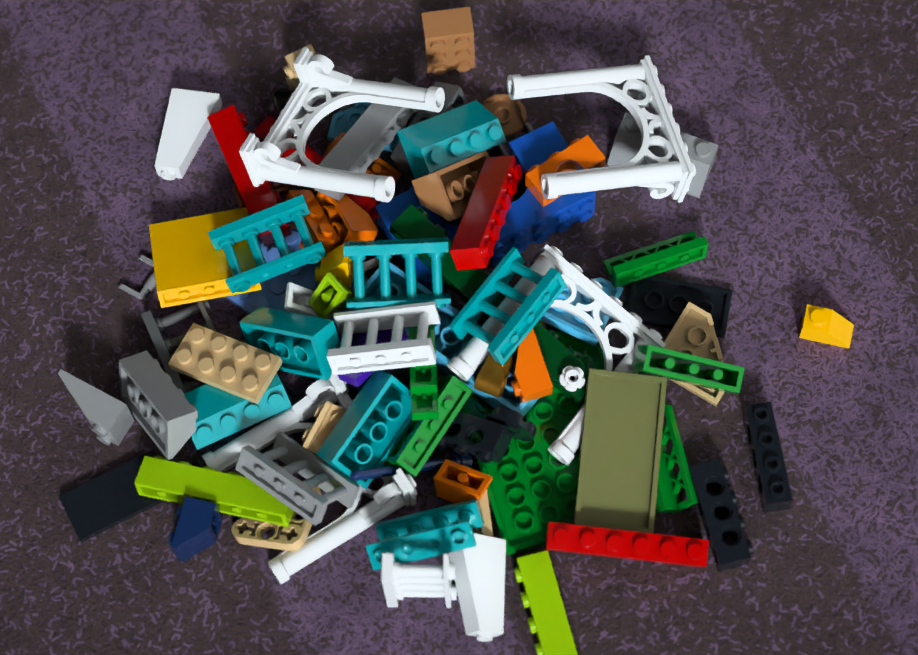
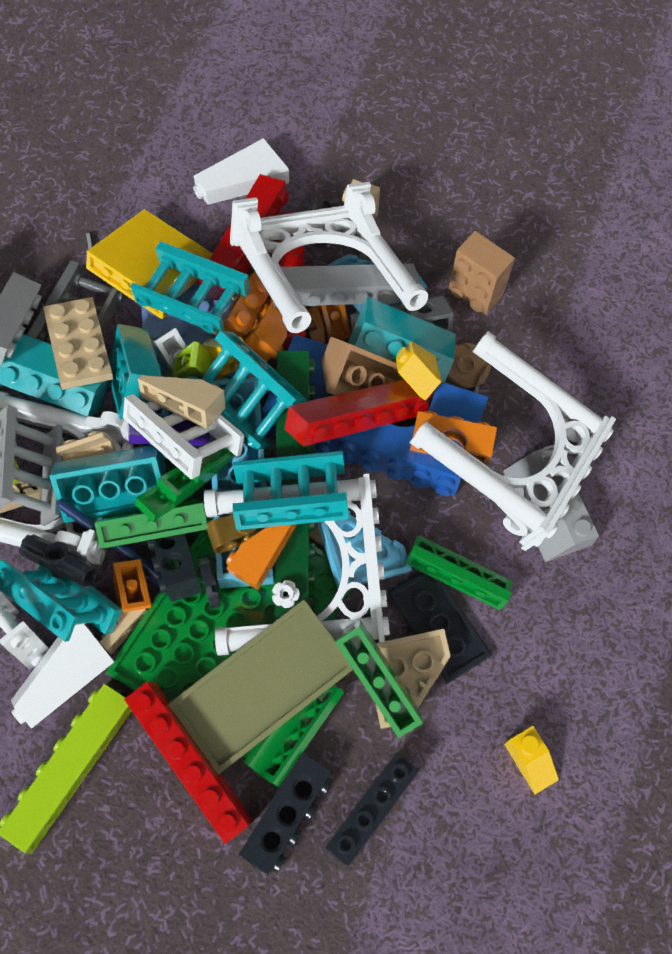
camera: 40 degrees right, 0 degrees up
(368, 315) = (188, 398): none -> tan slope
(385, 517) = (58, 560): none -> black piece
(491, 146) = (418, 369): none -> yellow slope

